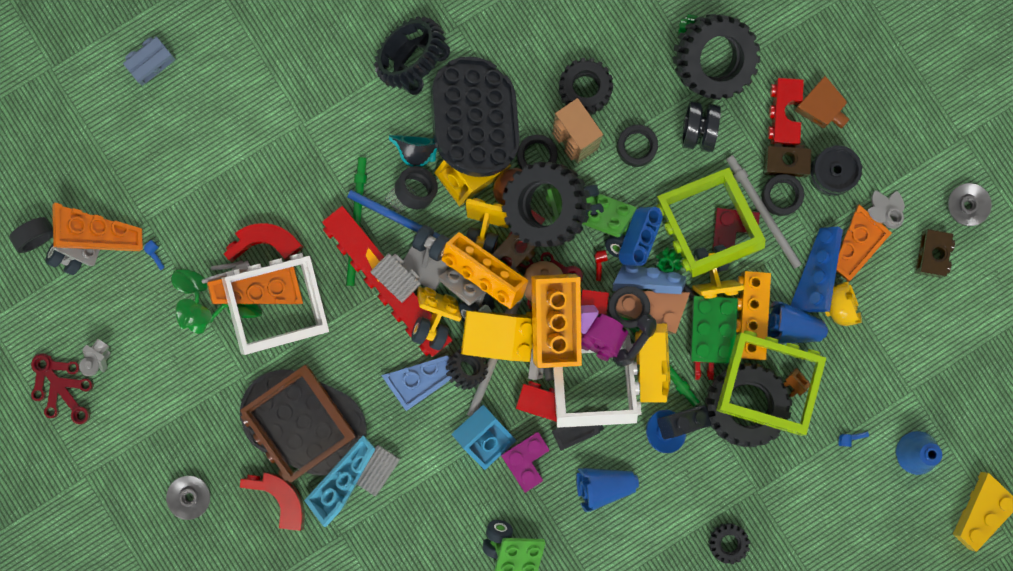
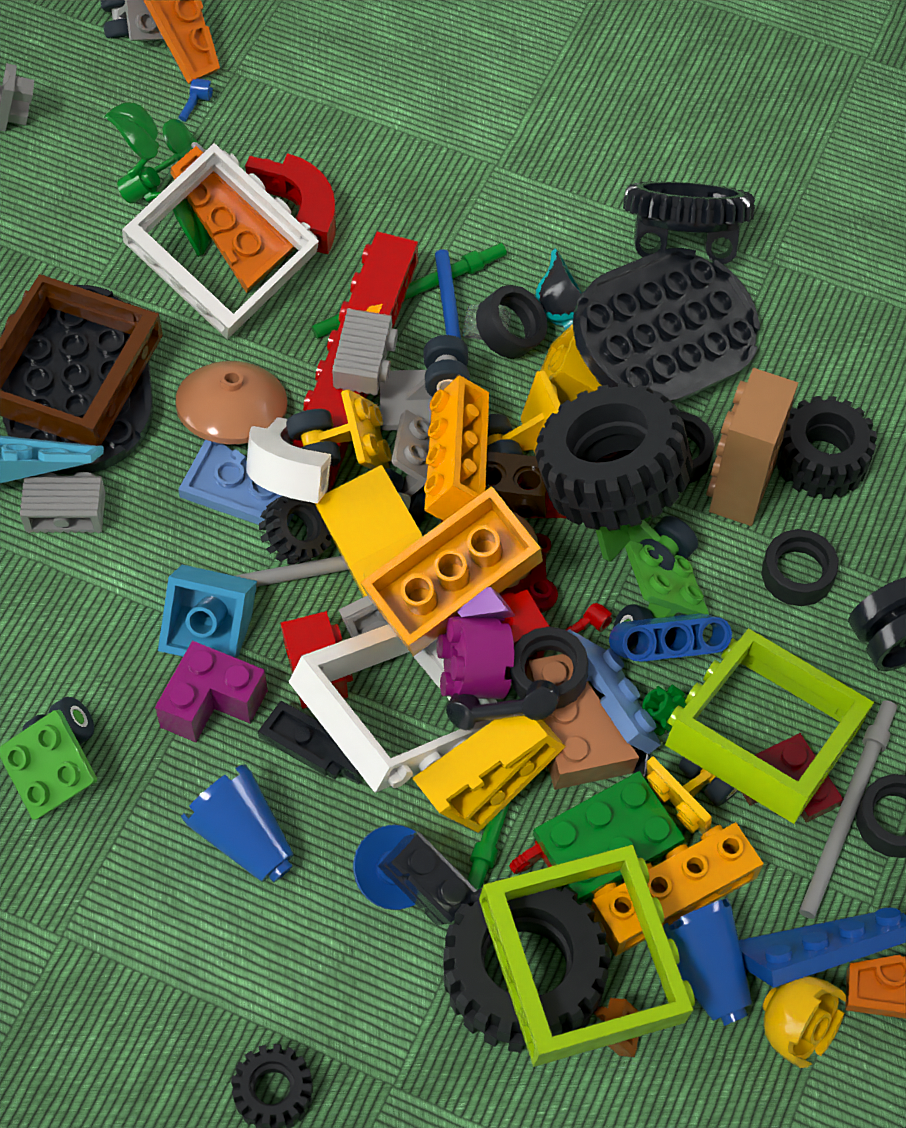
camera: 55 degrees right, 25 degrees down
(378, 363) = (228, 399): none -> nougat dish
(436, 361) = (284, 467): none -> white arch

